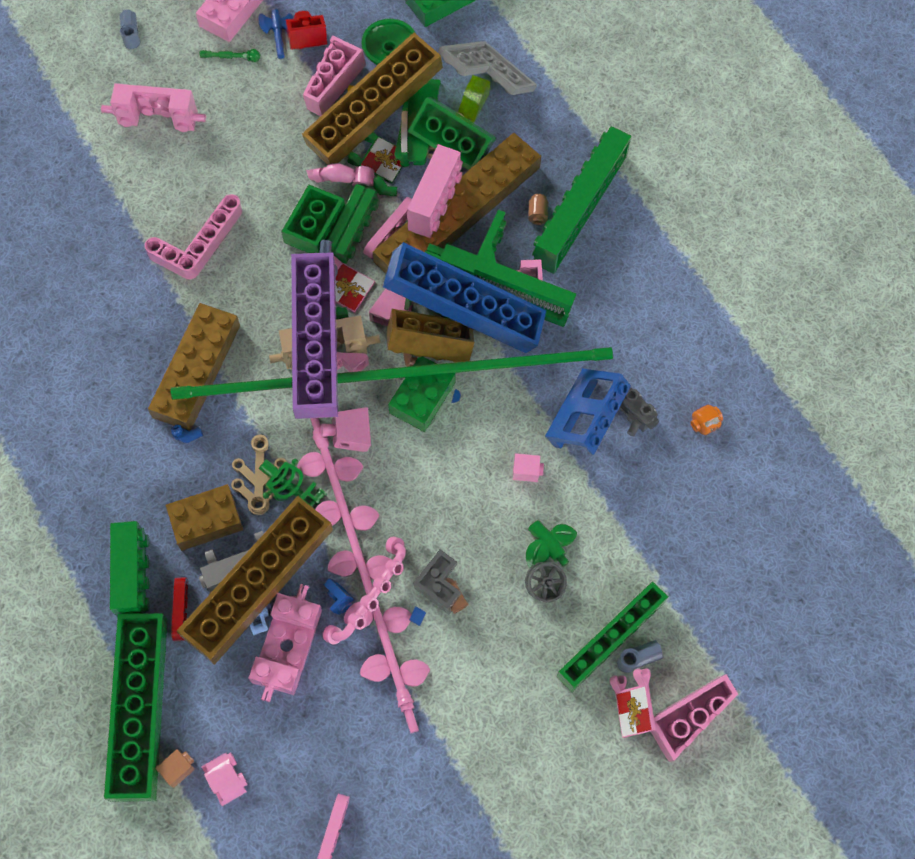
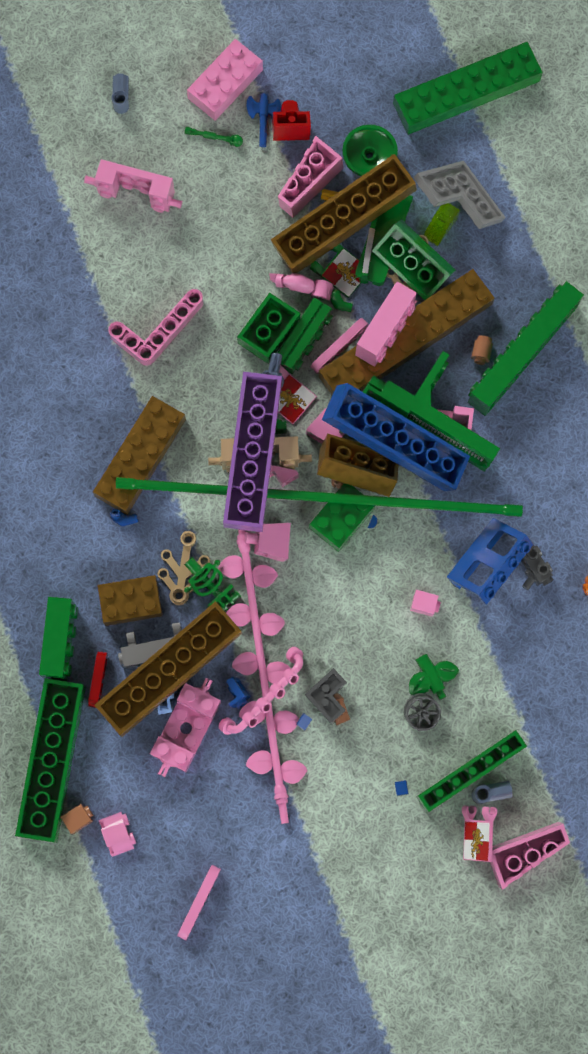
camera: 10 degrees right, 10 degrees up
(538, 670) = (401, 788): none -> blue window

